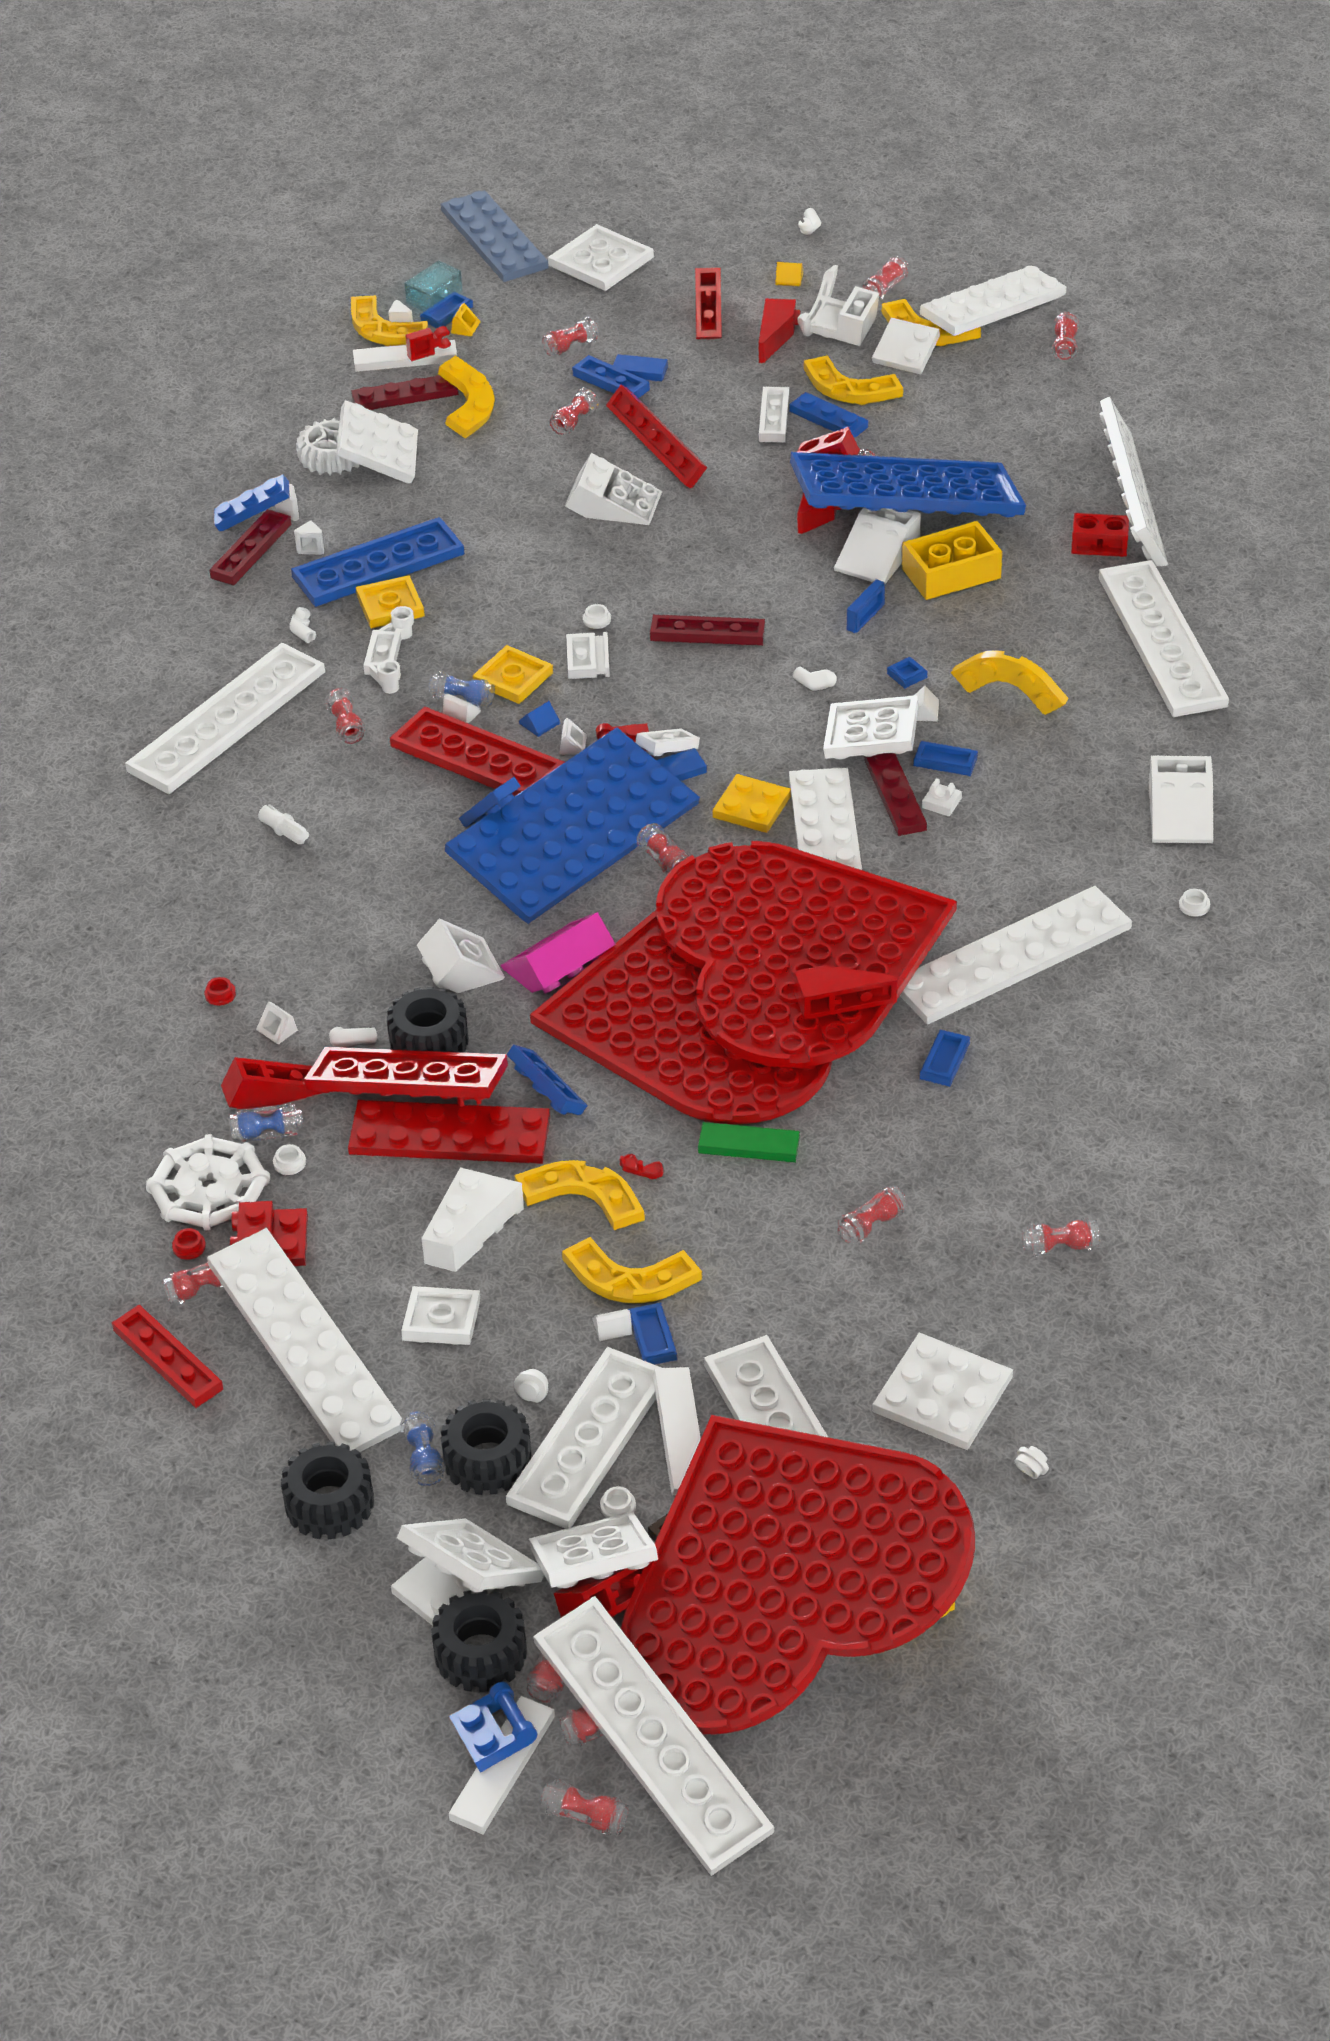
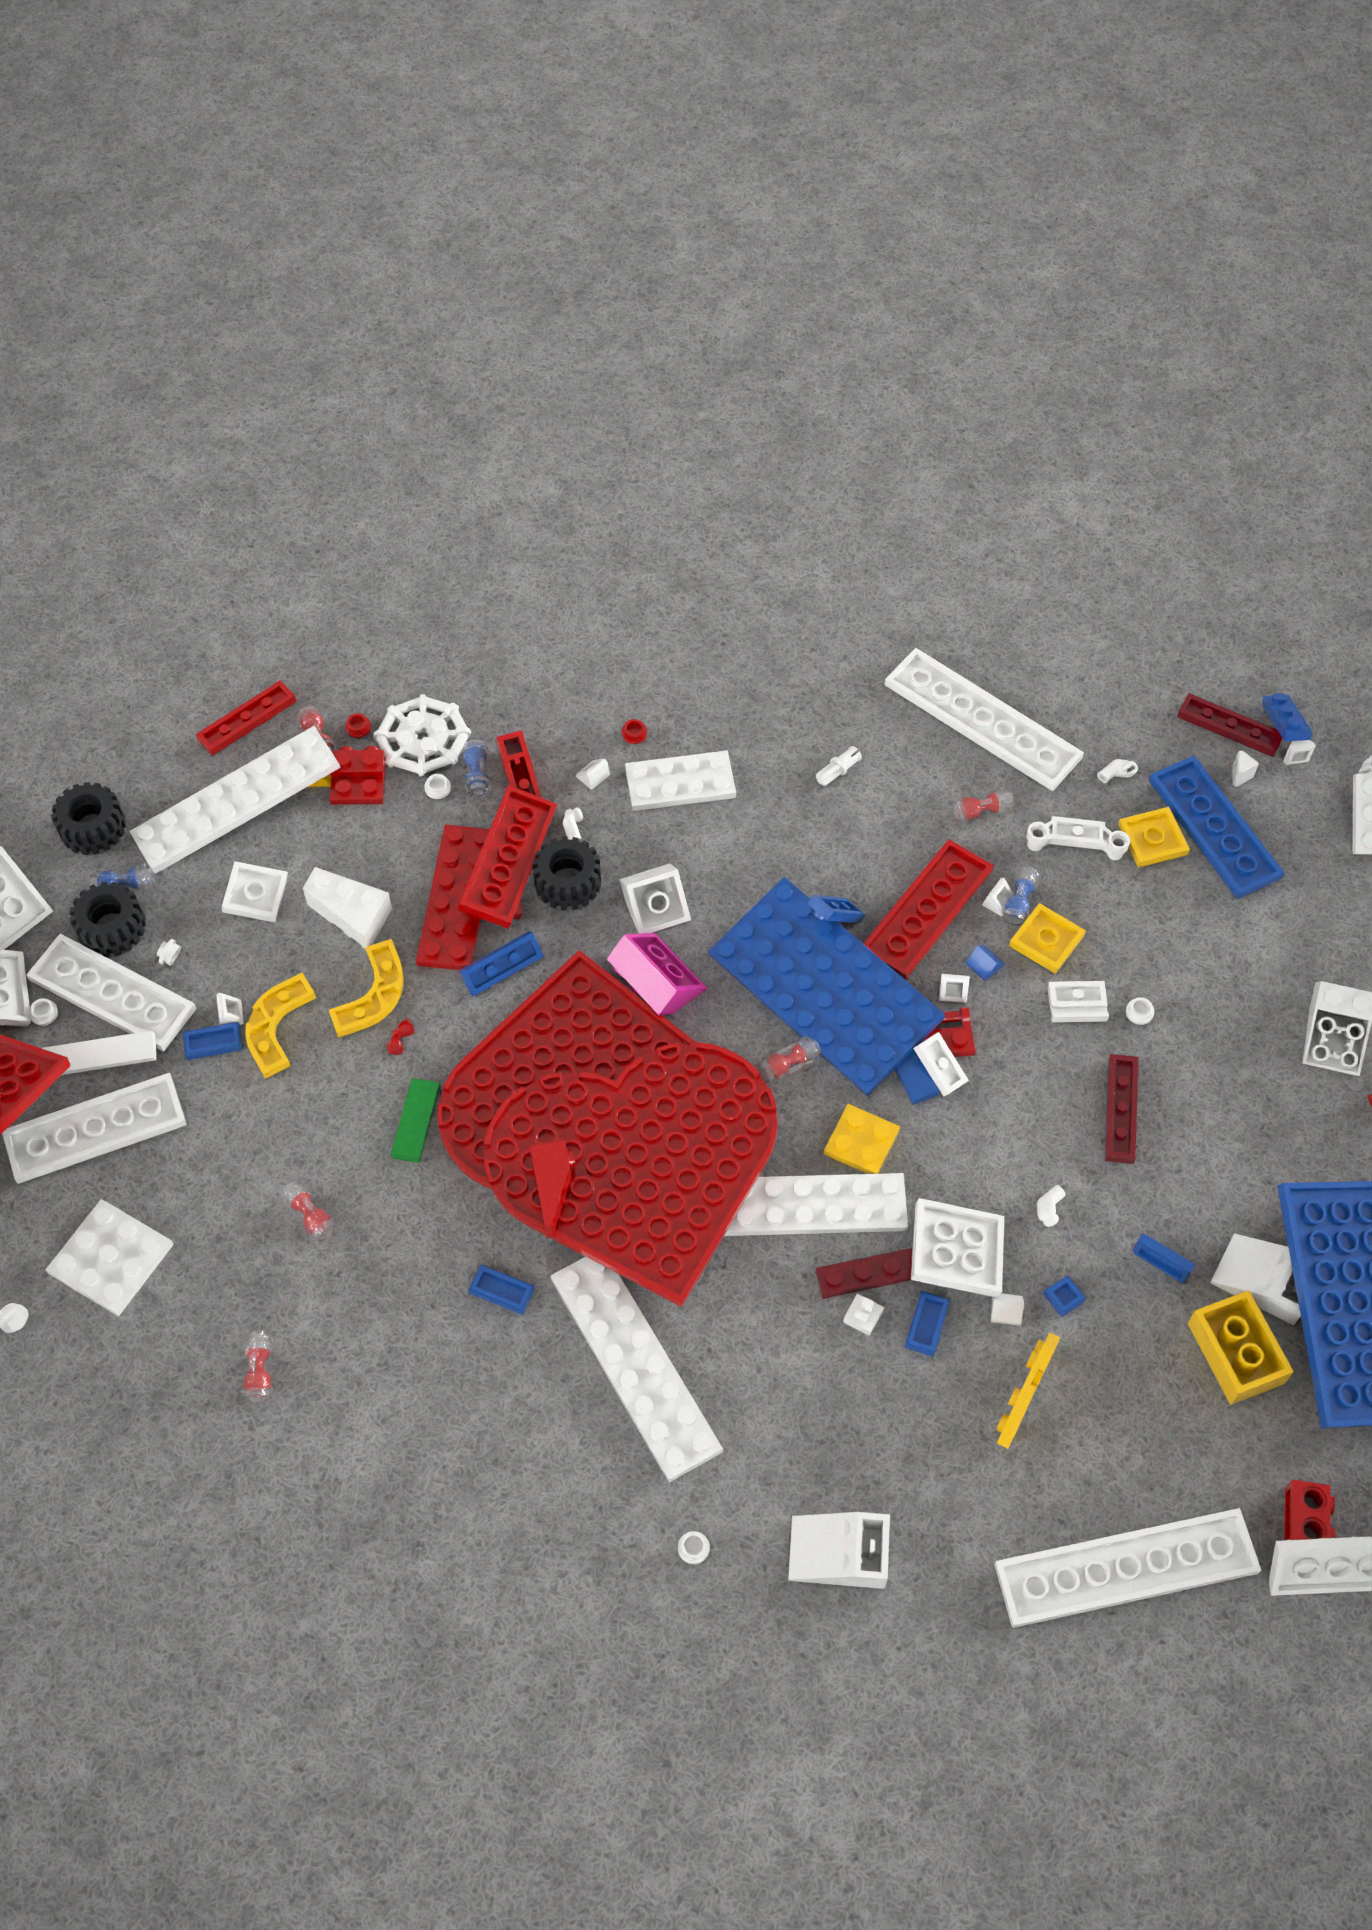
camera: 90 degrees right, 15 degrees up
(292, 953) = (680, 780): none -> white plate

